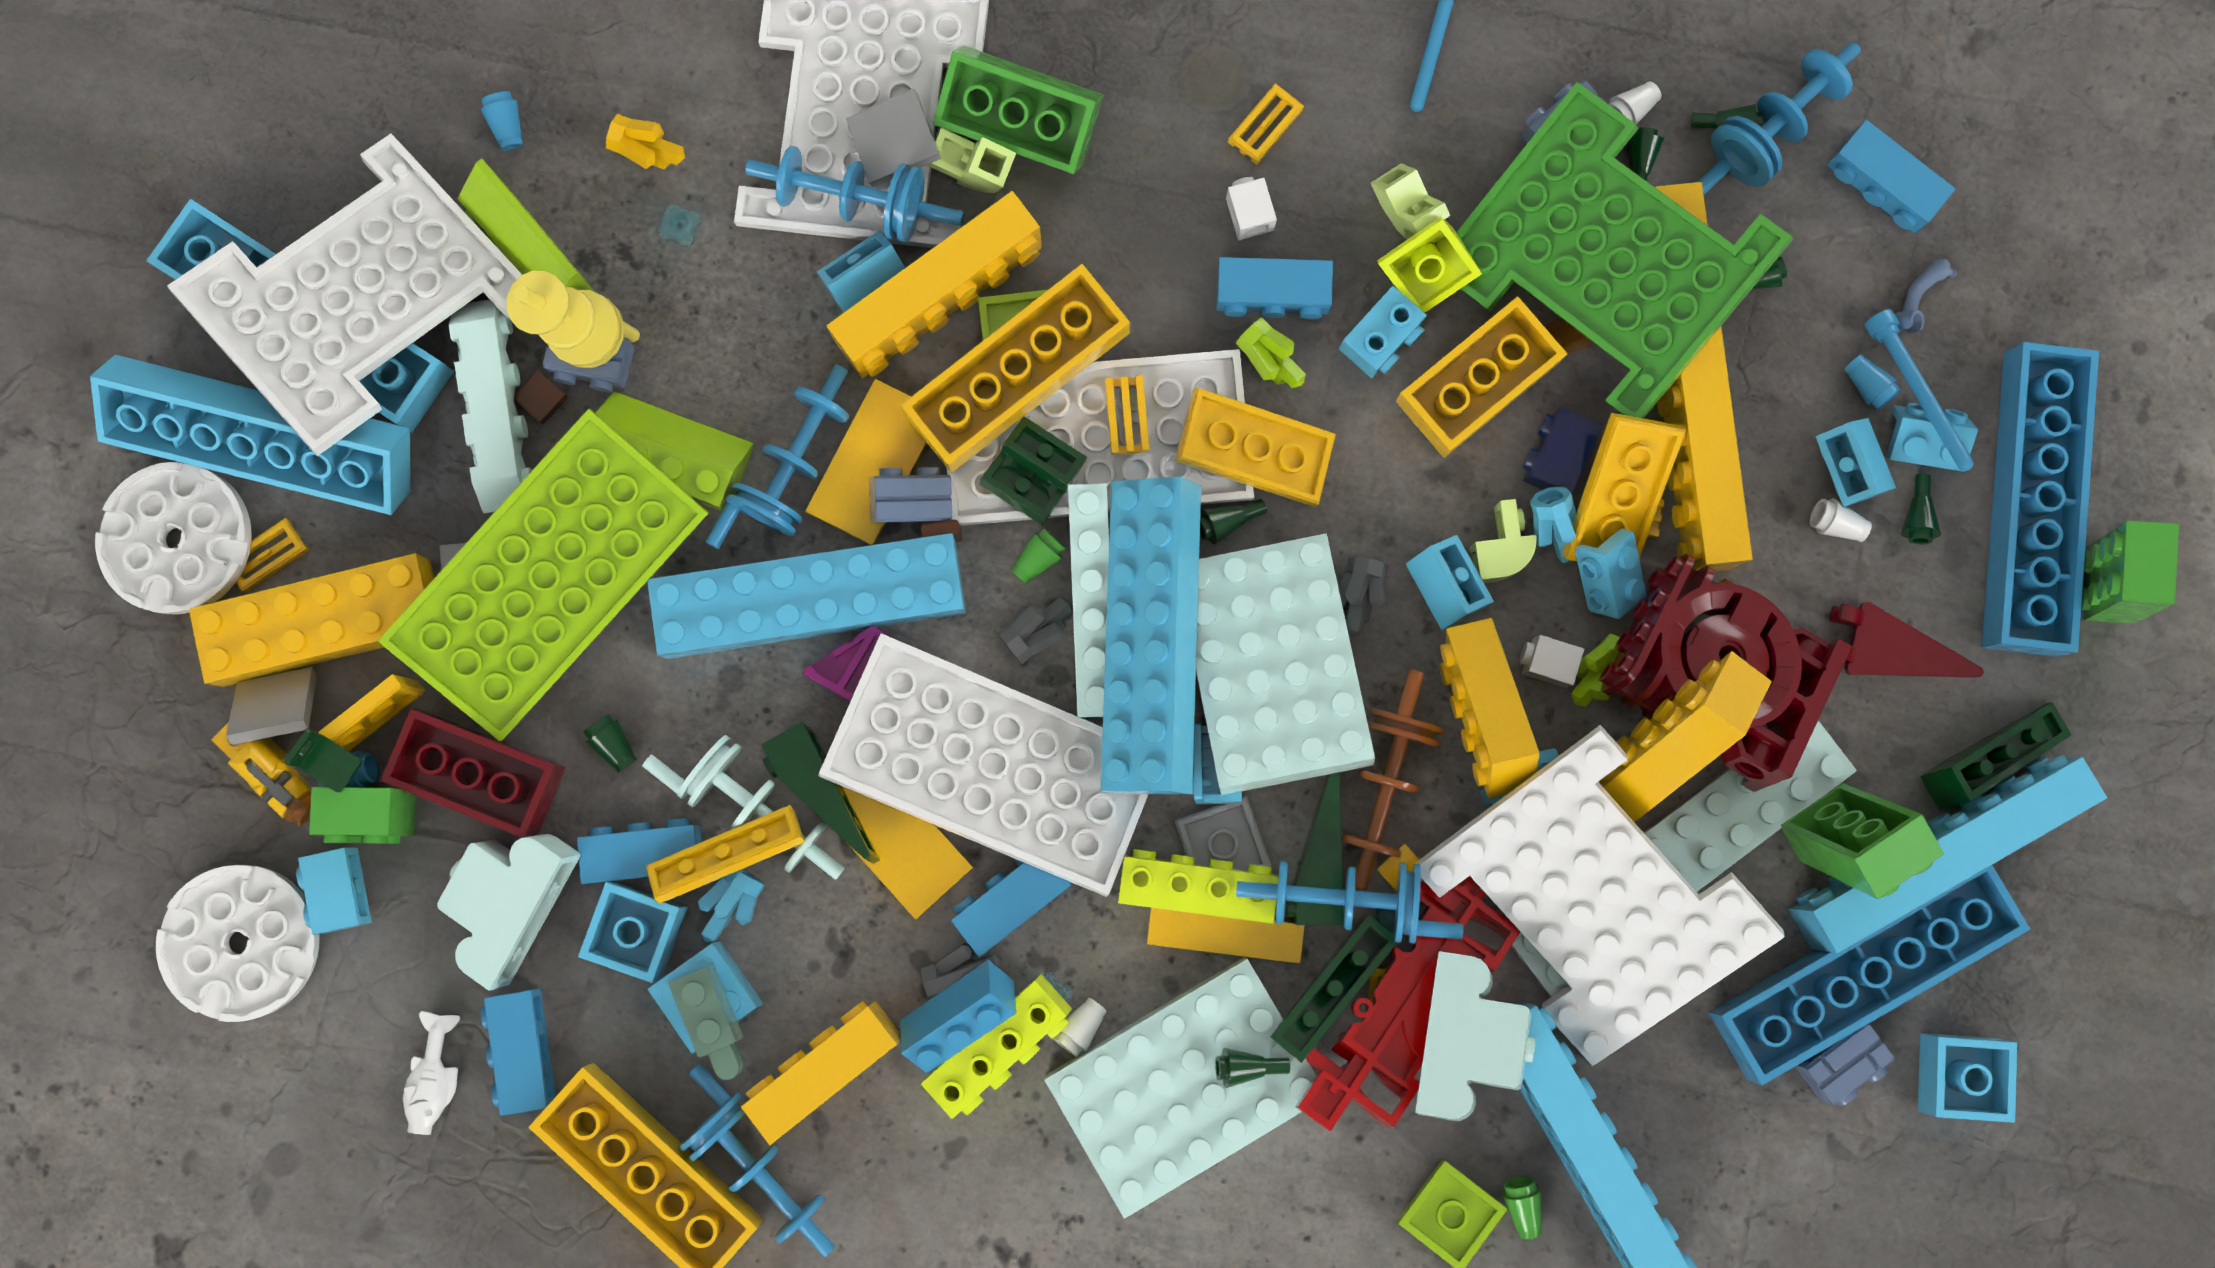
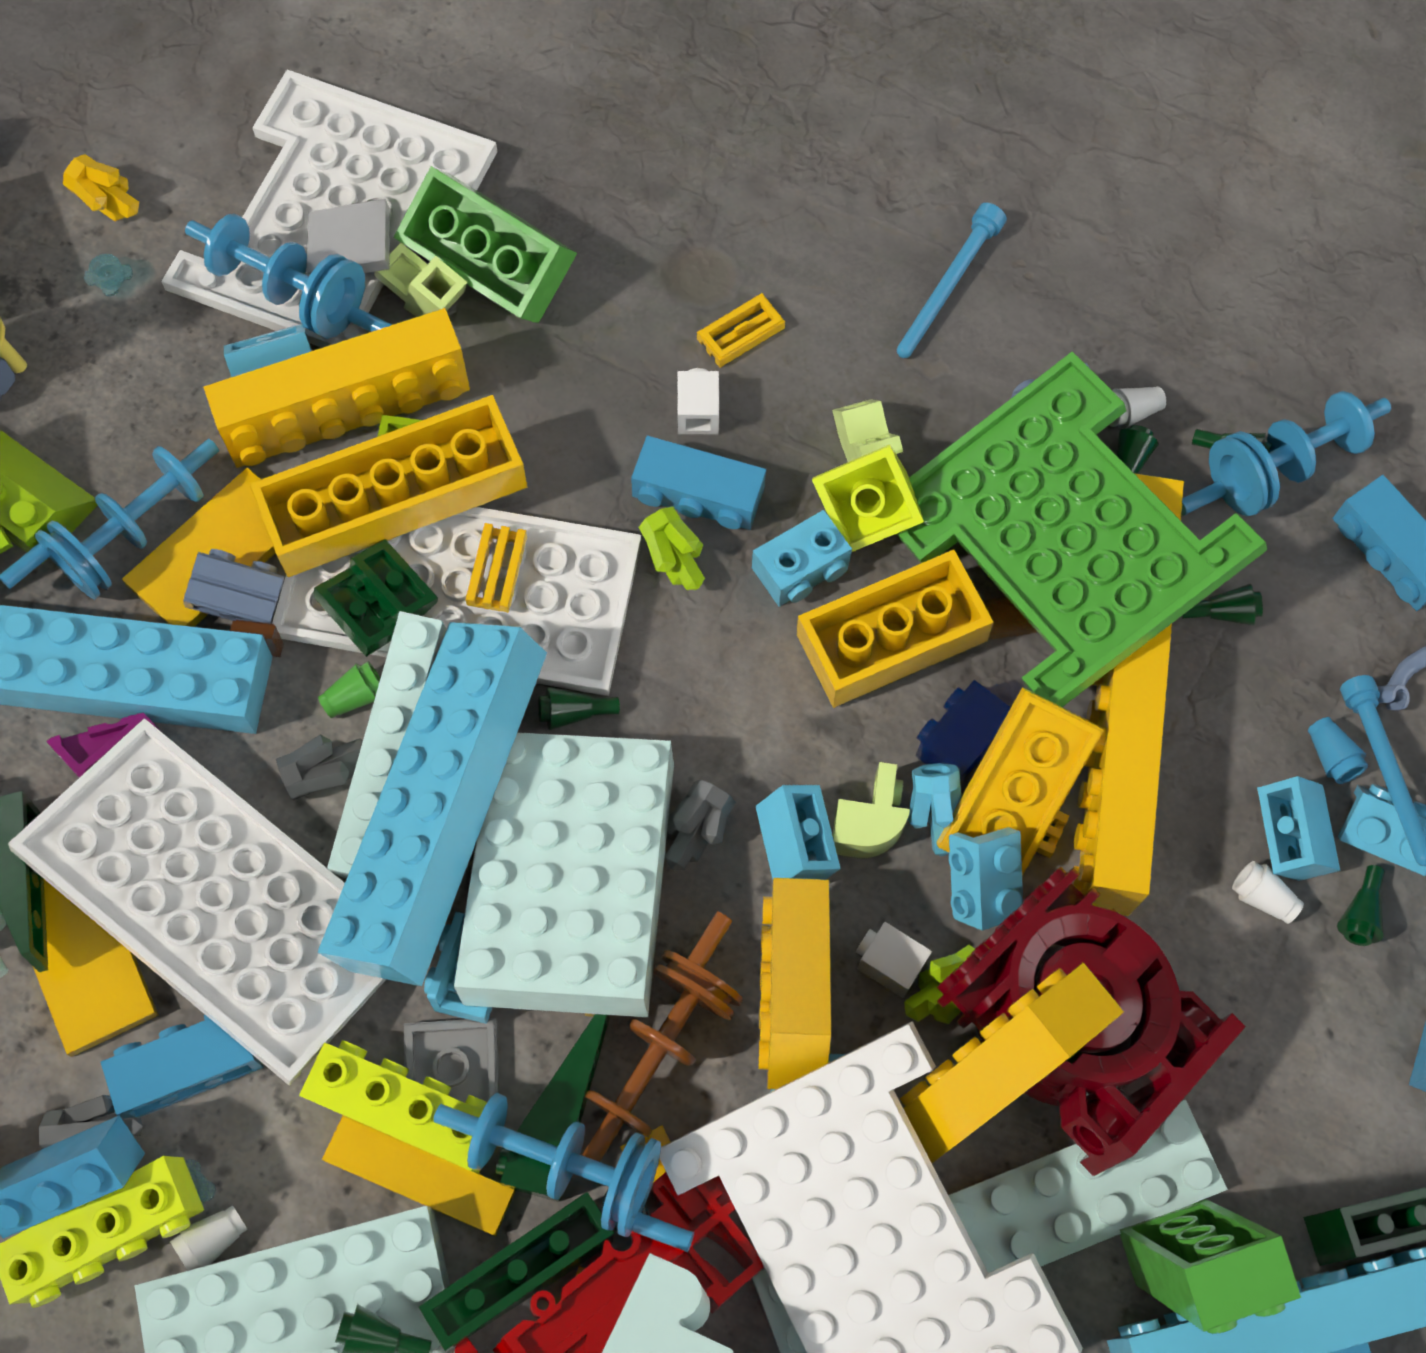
camera: 15 degrees right, 15 degrees down
(1255, 447) = (625, 637): yellow tile -> none
(1893, 648) = (1300, 1055): dark red flag -> none

